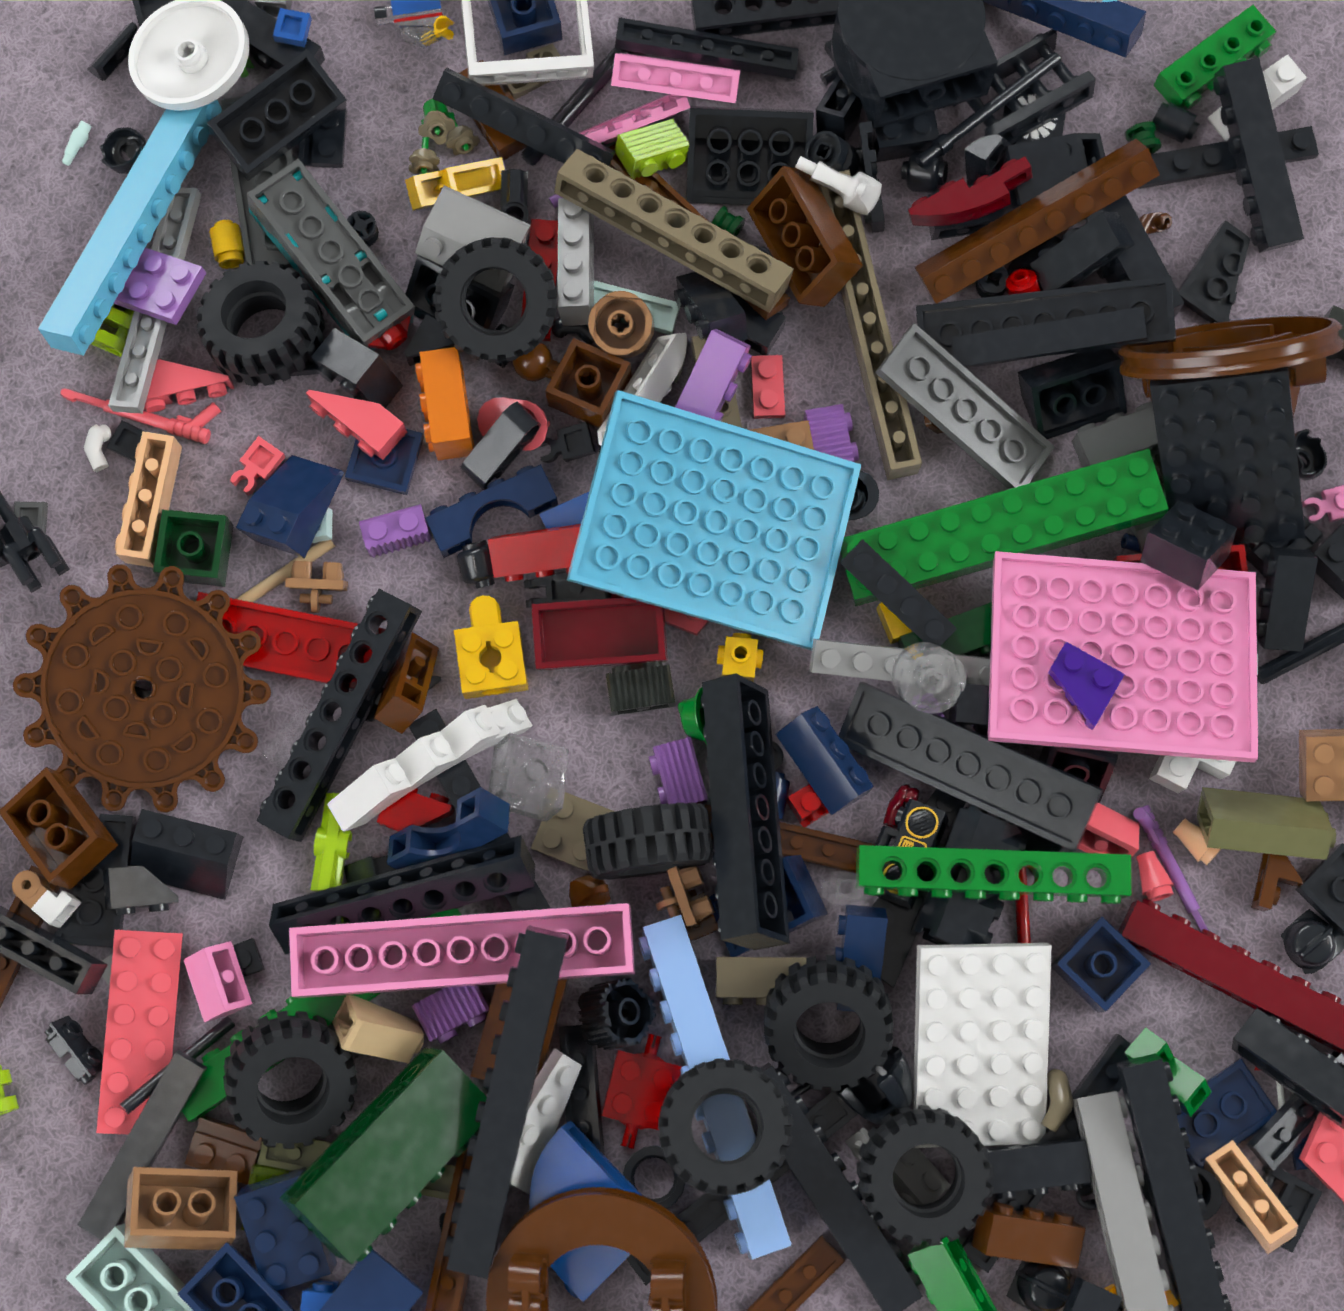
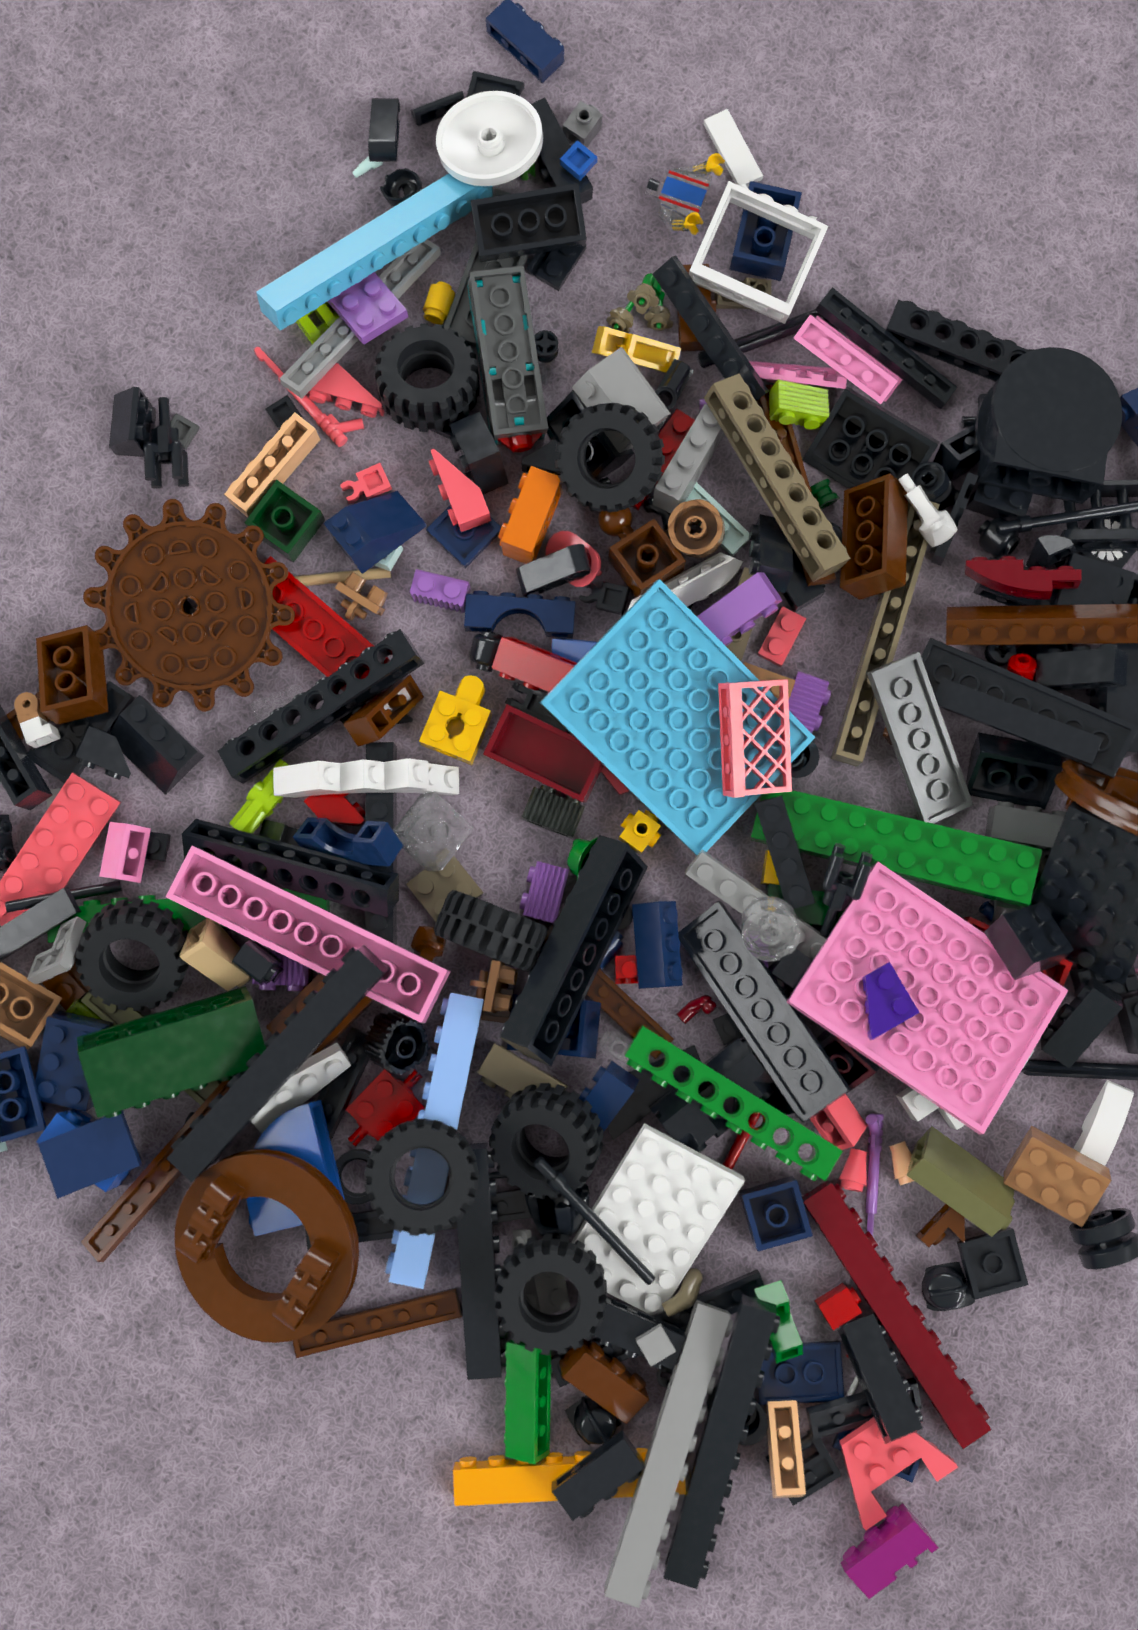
camera: 30 degrees right, 5 degrees up
(73, 102) = (384, 130): none -> black beam
(93, 446) = (255, 403): white arm -> none
(213, 1123) = (61, 955): none -> light grey plate
(427, 1010) = (258, 962): none -> black brick
(779, 504) = (733, 743): none -> coral fence
(866, 1055) = (557, 1182): none -> black bar
(917, 827) = (696, 1037): black piece -> none
(974, 595) = (842, 886): none -> black plant
(1059, 1165) = (655, 1344): none -> light grey tile
(1218, 1021) = (839, 1305): none -> red brick

